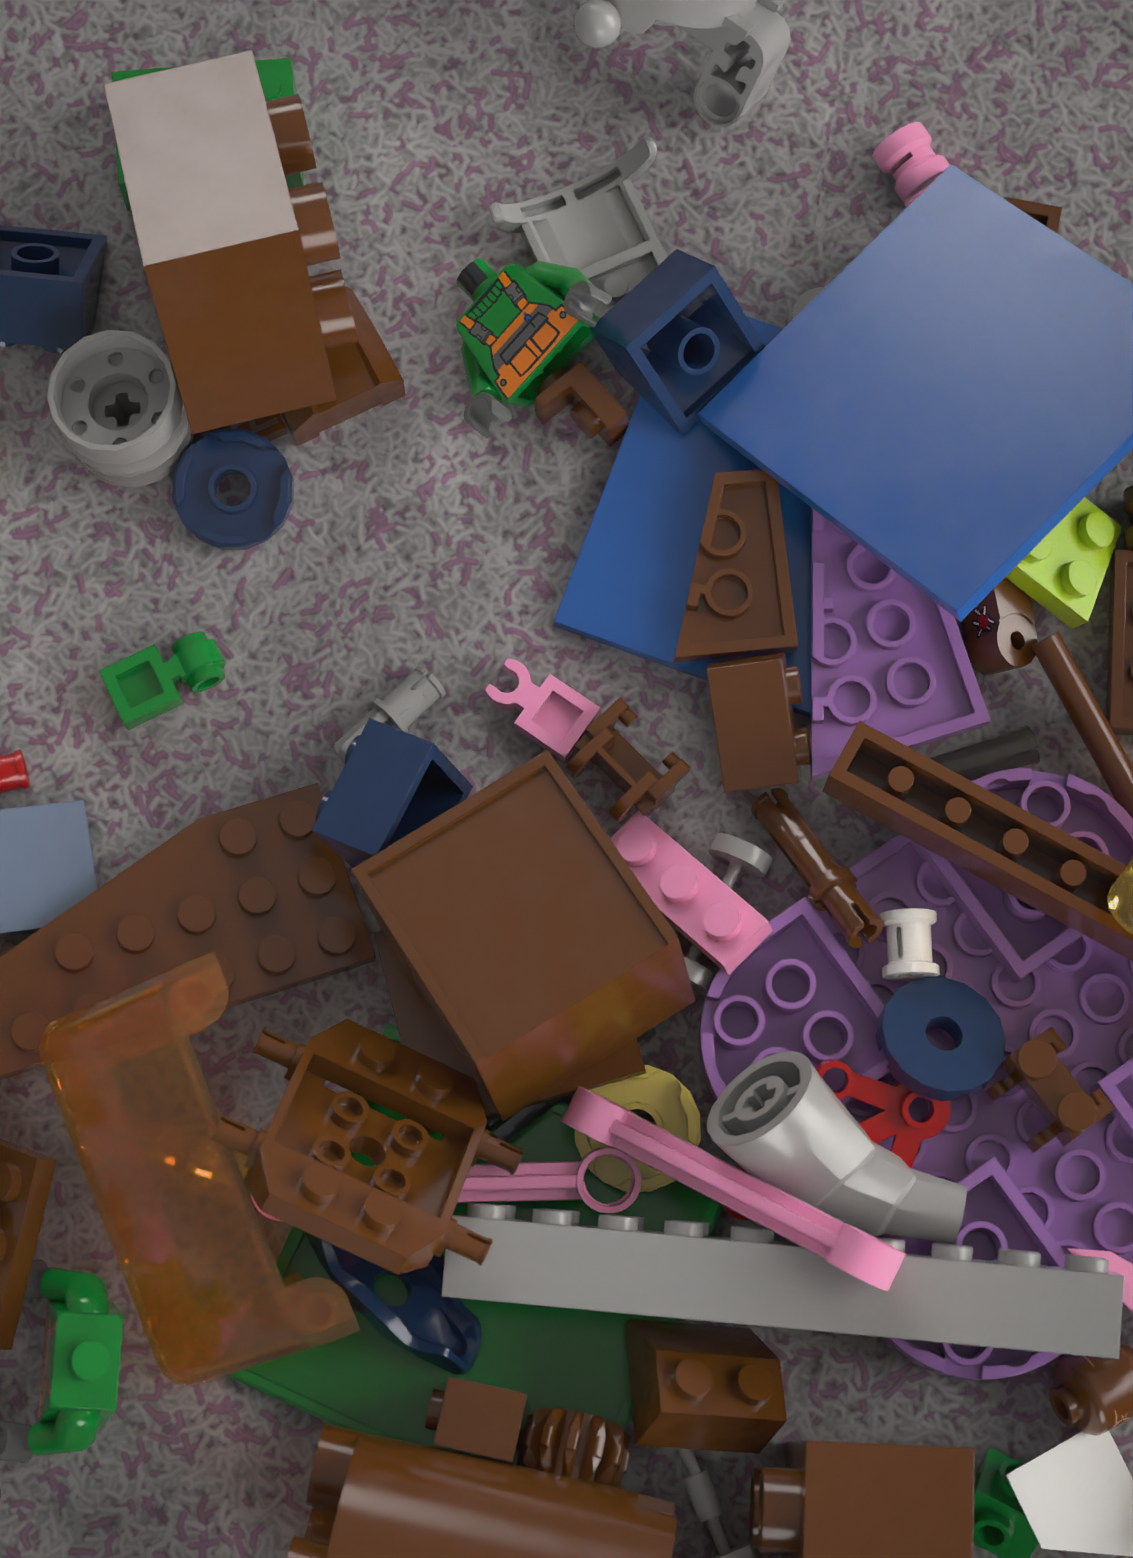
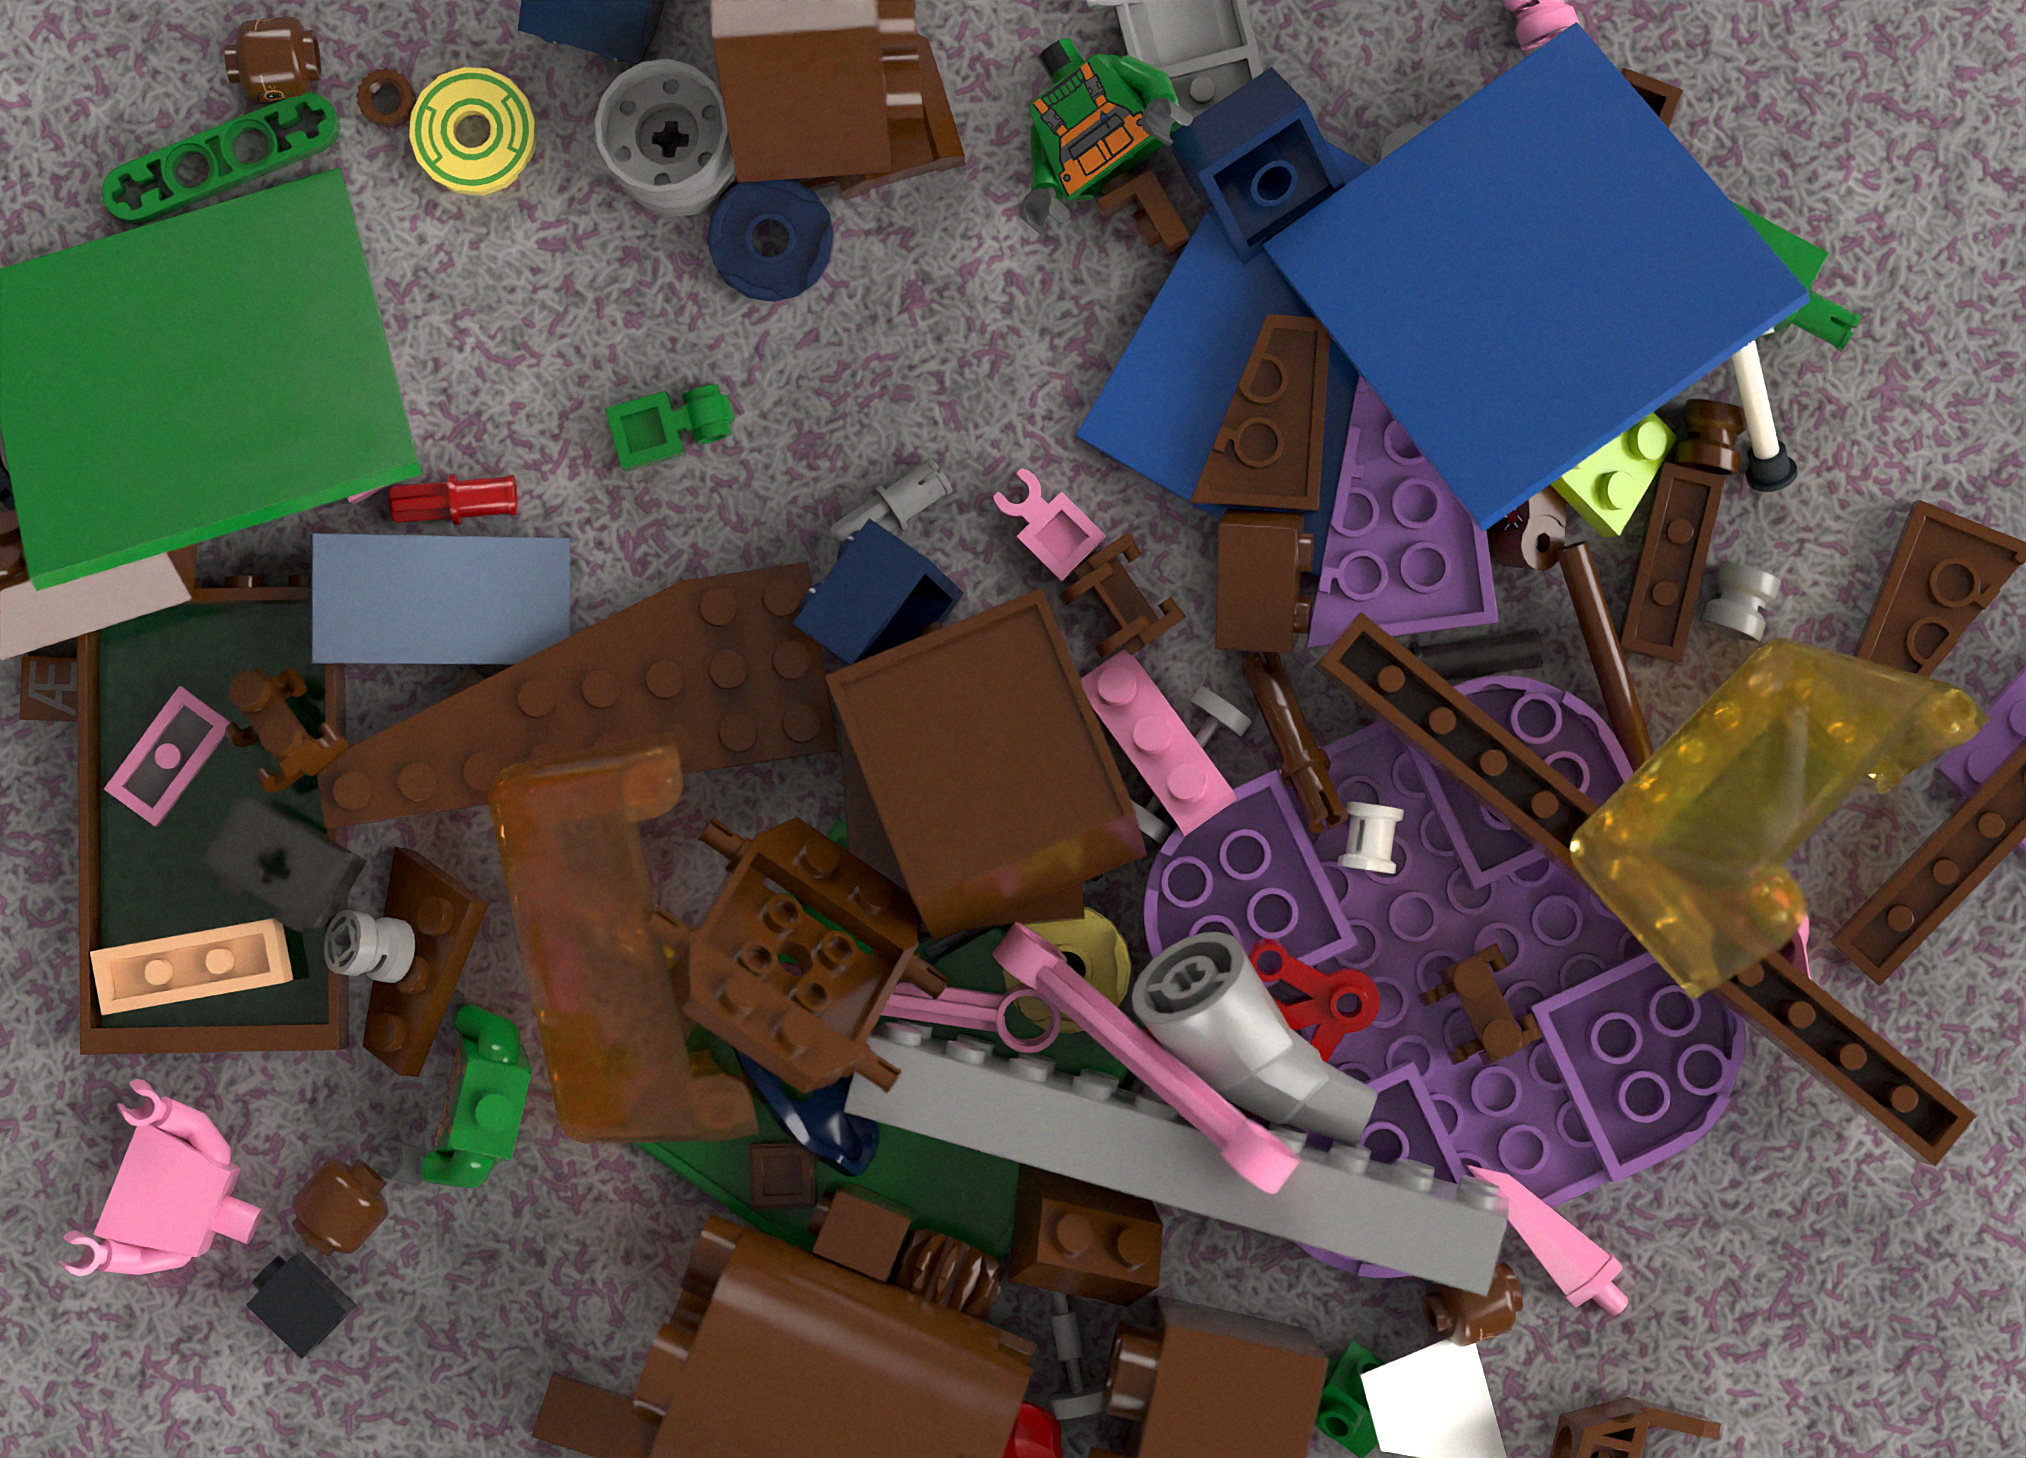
camera: 10 degrees right, 10 degrees up
(390, 1385) = (781, 1176): none -> reddish brown tile
(959, 1012) = (1407, 913): dark blue tile -> none

